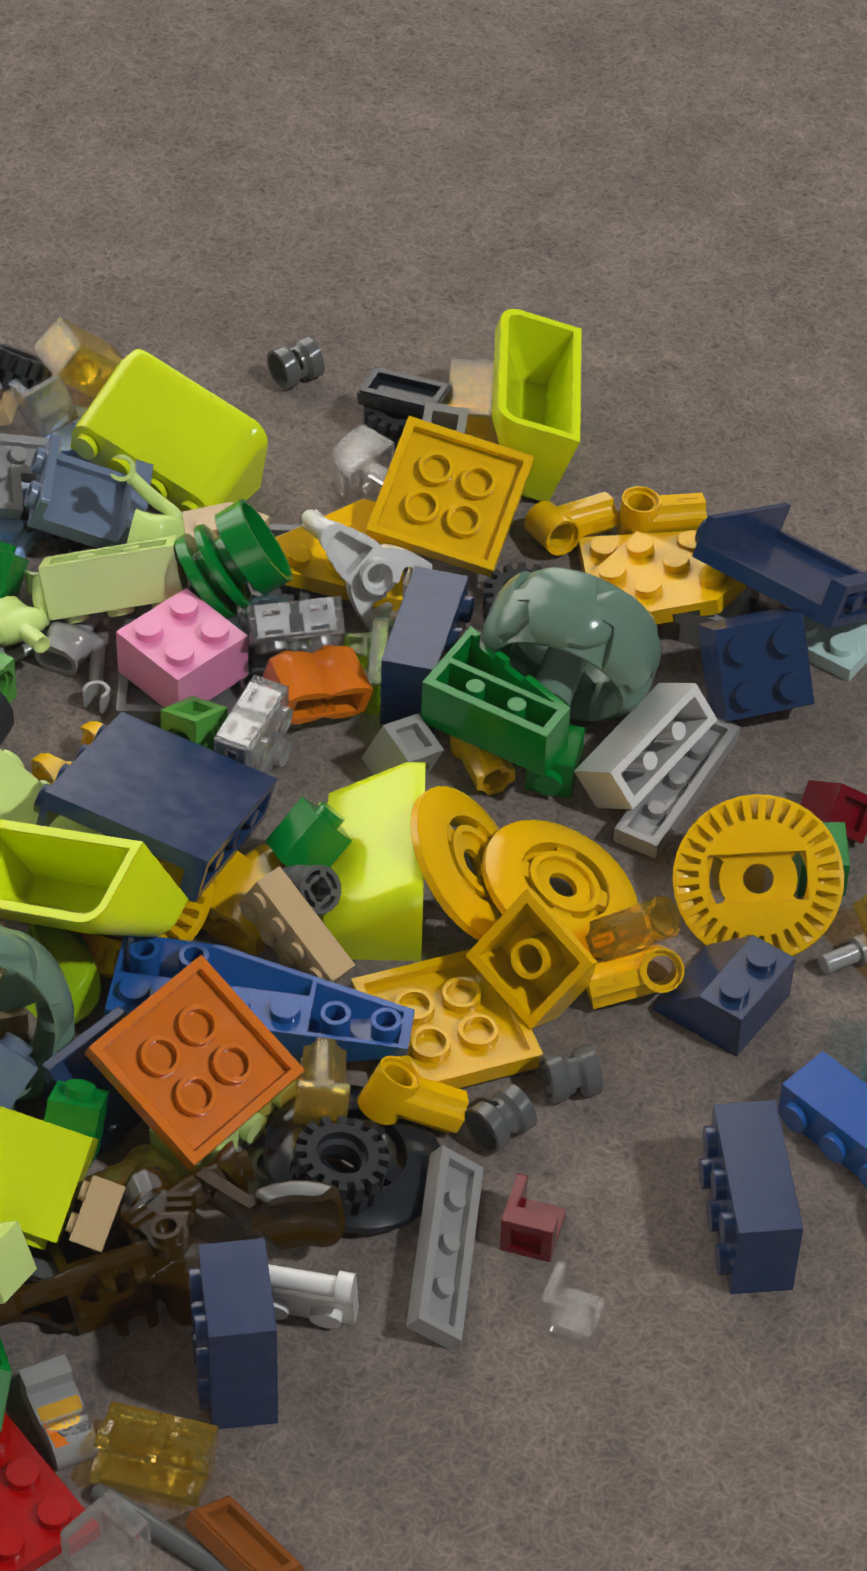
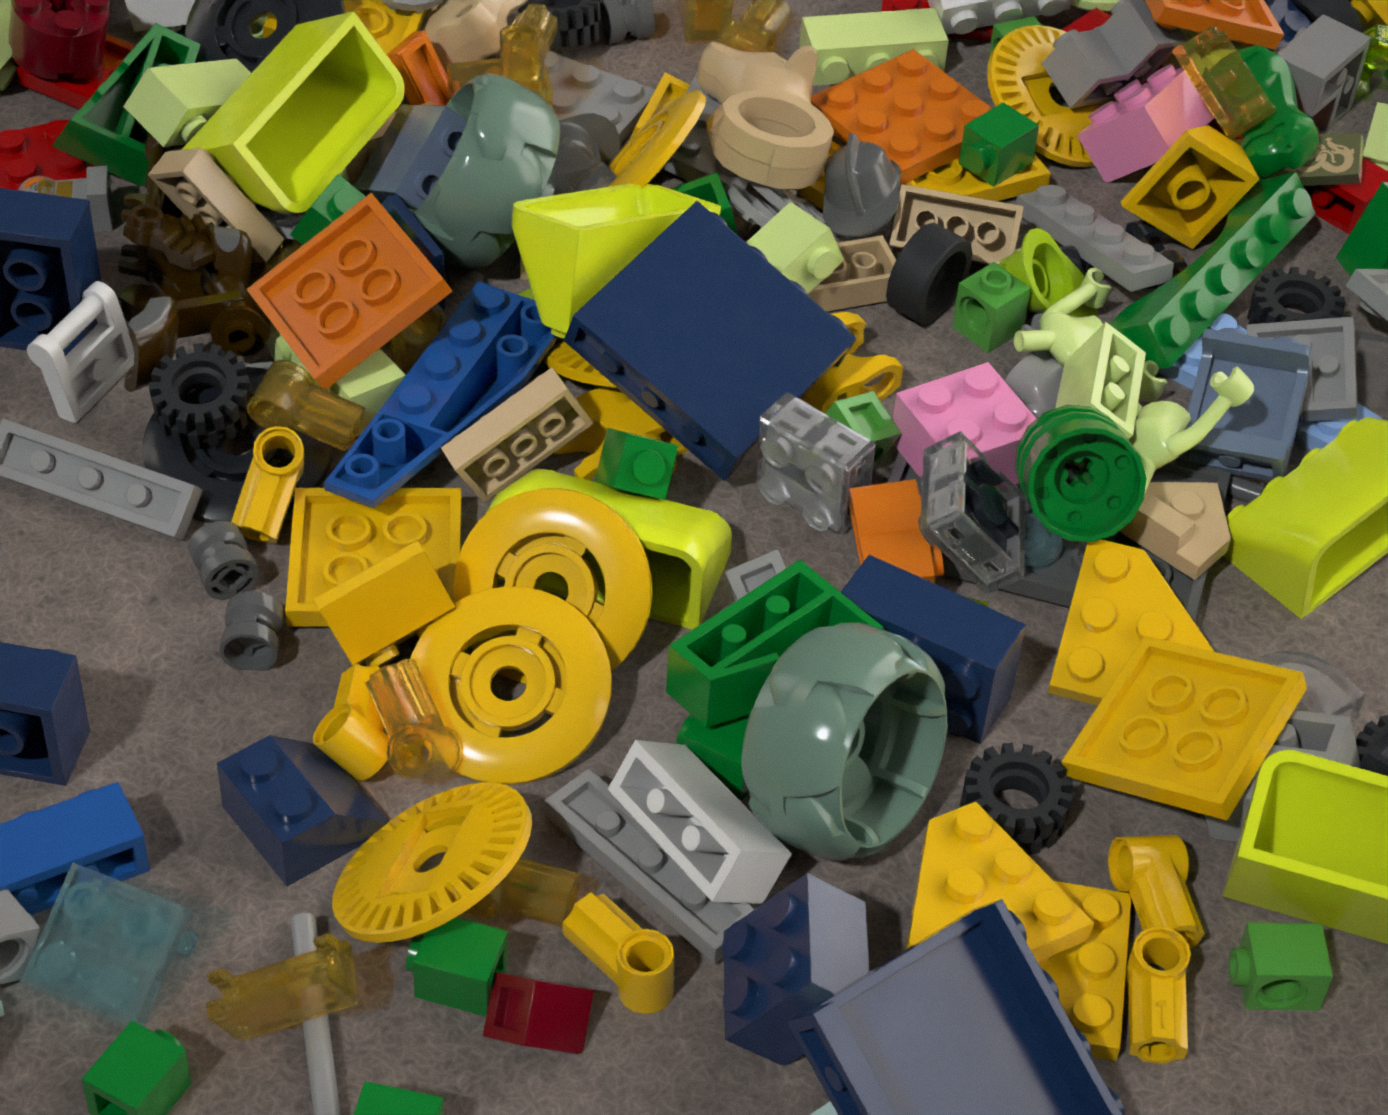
camera: 105 degrees right, 0 degrees up
(317, 885) = (565, 445): dark grey wheel -> none
(364, 564) = (1064, 616): white animal -> none
(530, 1225) = (86, 551): panel -> none
(607, 458) = (1281, 966): none -> bright green brick
(769, 768) = (623, 952): none -> yellow piece

